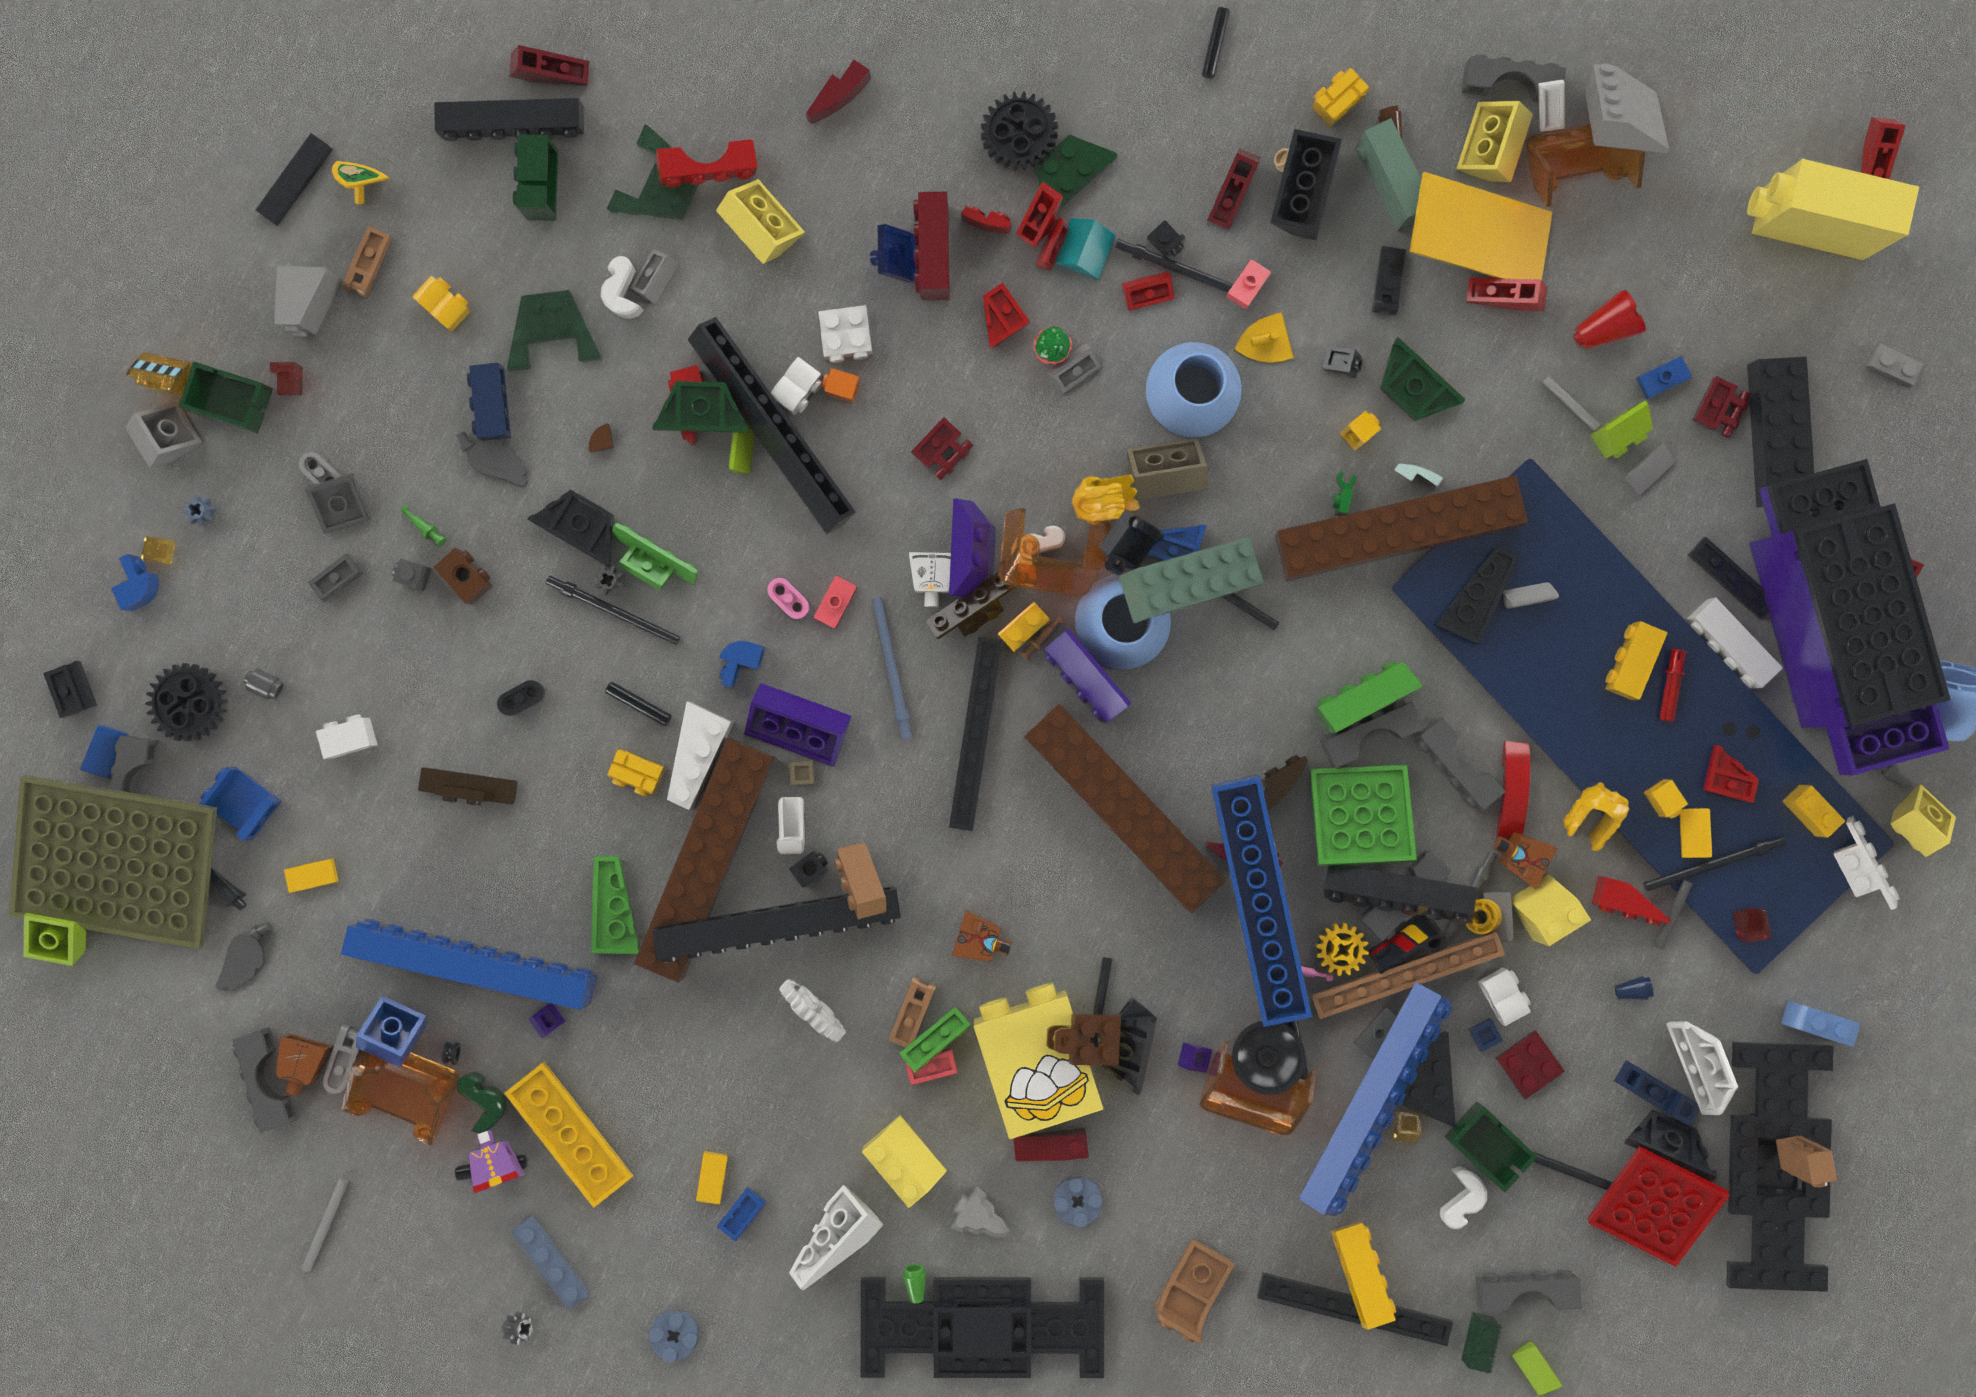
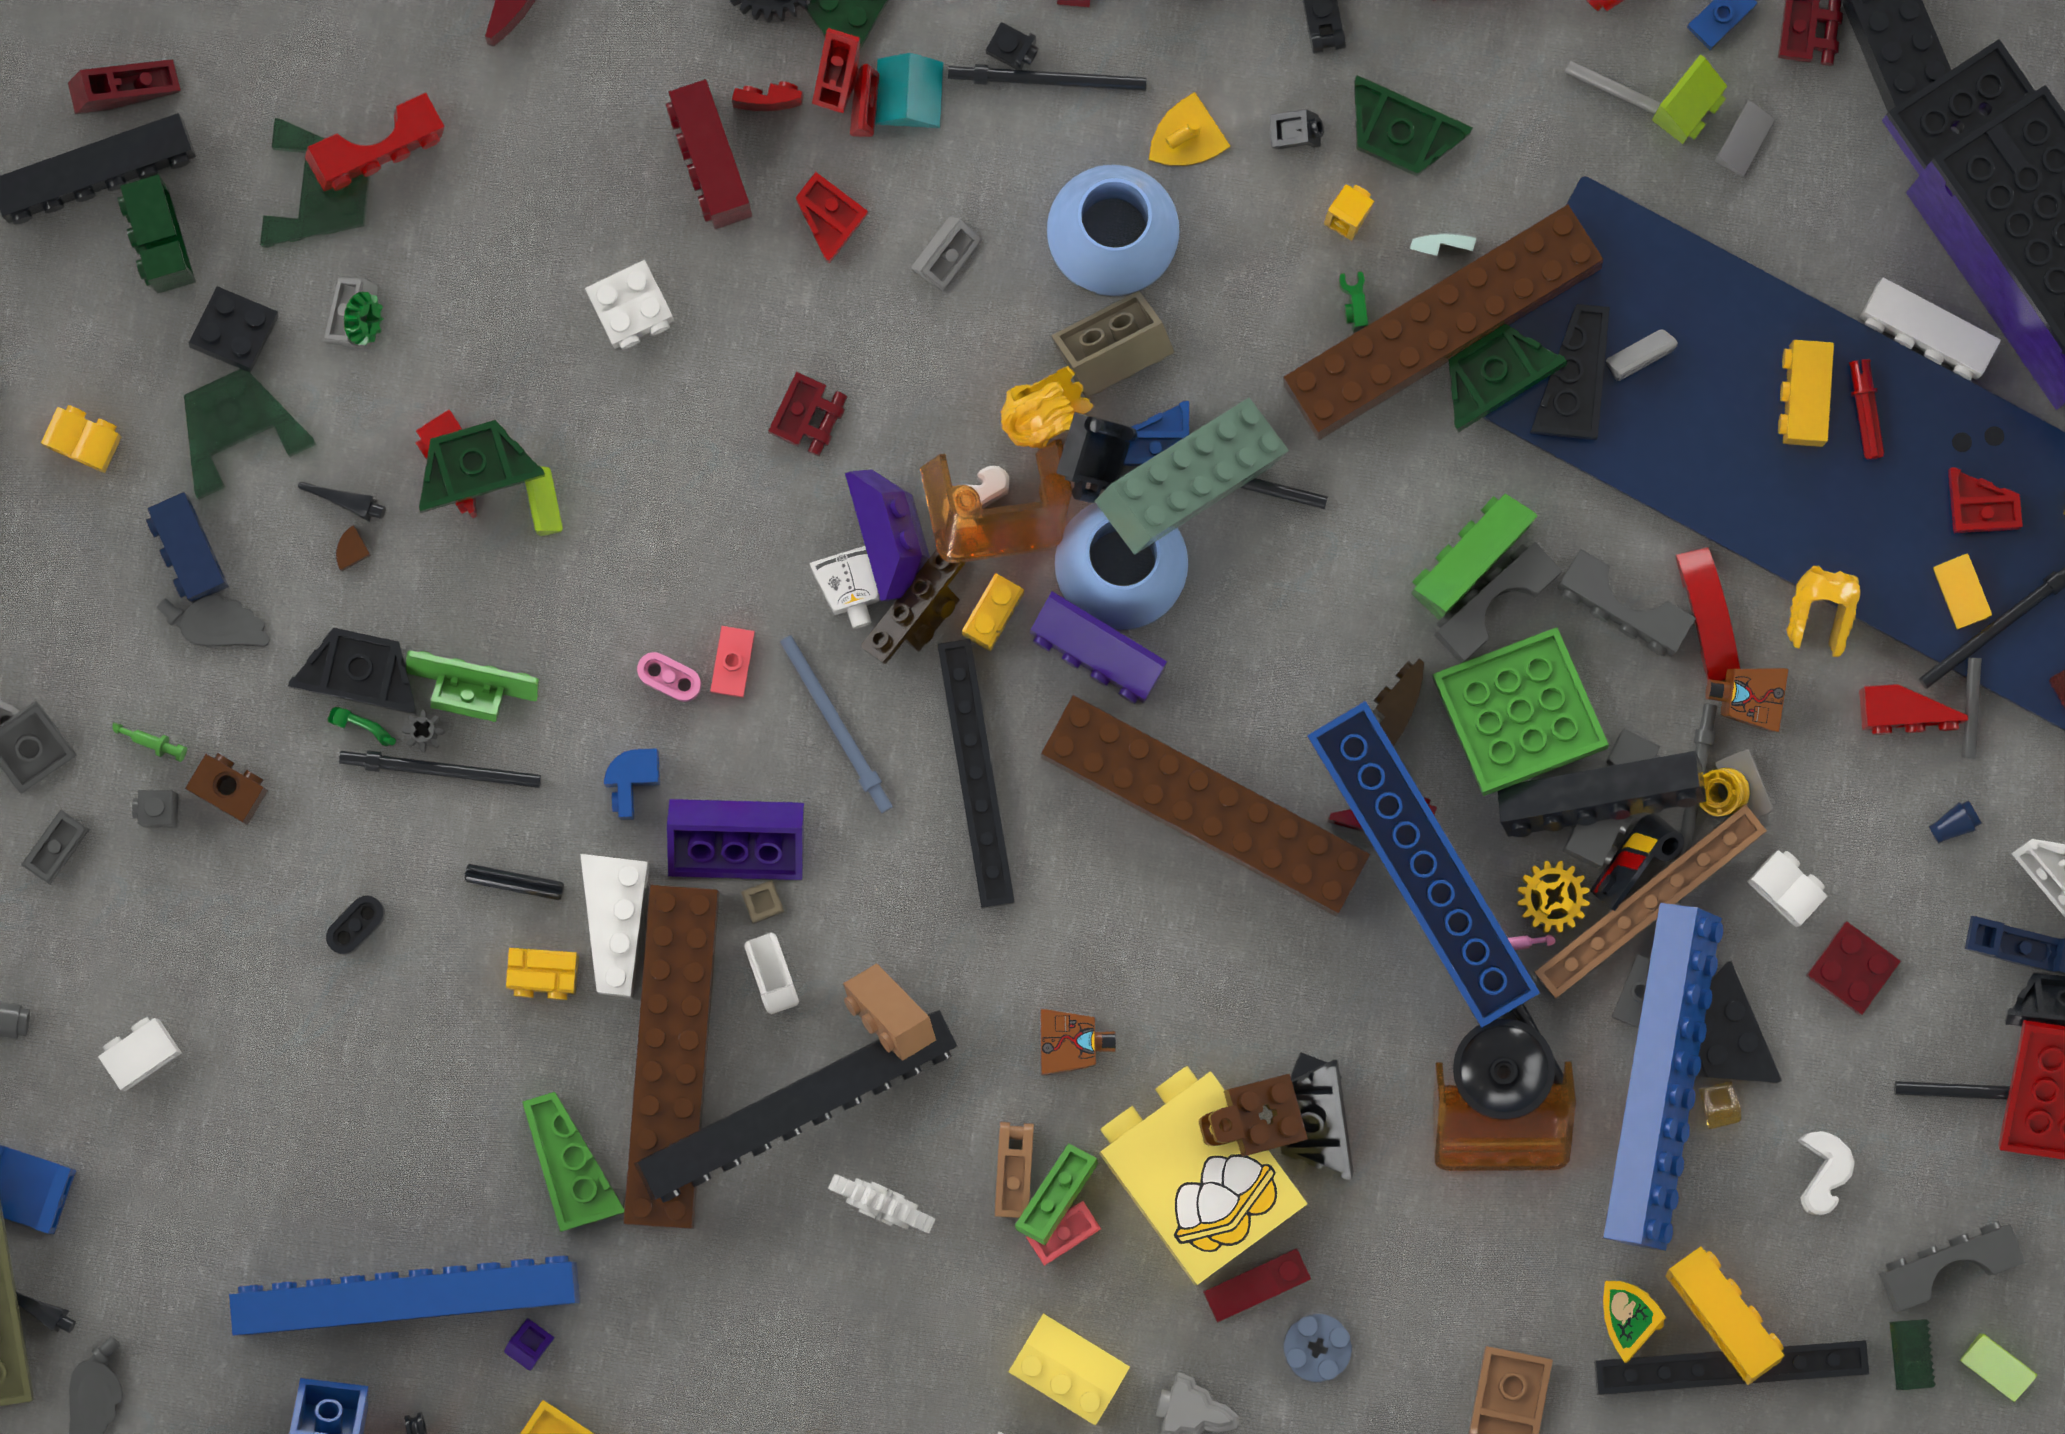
camera: 25 degrees left, 5 degrees down
(311, 875) = (149, 1255): yellow tile -> none
(467, 786) = (321, 1065): dark brown bracket -> none
(557, 551) = (340, 717): none -> green piece
(569, 261) = (233, 329): none -> black plate
(616, 287) = (306, 343): white animal -> none
(616, 410) = (356, 503): none -> black piece
(659, 273) = (359, 306): none -> green gear
(759, 220) = (468, 195): light yellow slope -> none
(771, 425) = (574, 457): black brick -> none
(797, 386) = (588, 395): white brick -> none
(800, 873) = (814, 1038): black brick -> none
(841, 385) = (647, 375): orange brick -> none
(894, 253) = (662, 180): clear blue tile -> none
(1040, 639) = (1016, 628): medium nougat piece -> none
(1052, 345) = (908, 232): green piece -> none
(1101, 991) = (1255, 1055): black bar -> none
(1148, 291) = (1010, 120): red slope -> none
(1194, 1057) = (1409, 1106): dark purple slope -> none
(1248, 284) = (1139, 70): coral plate -> none
(1297, 1253) = (1630, 1316): none -> shield
(1425, 575) = (1497, 372): none -> dark green wing
(1485, 1035) = (1781, 947): dark blue plate -> none
(1490, 1146) = (1835, 1090): dark green piece -> none
(1549, 911) = (1803, 754): light yellow slope -> none
(1666, 799) = (1908, 559): yellow brick -> none
(1730, 576) = (1896, 244): black tile -> none

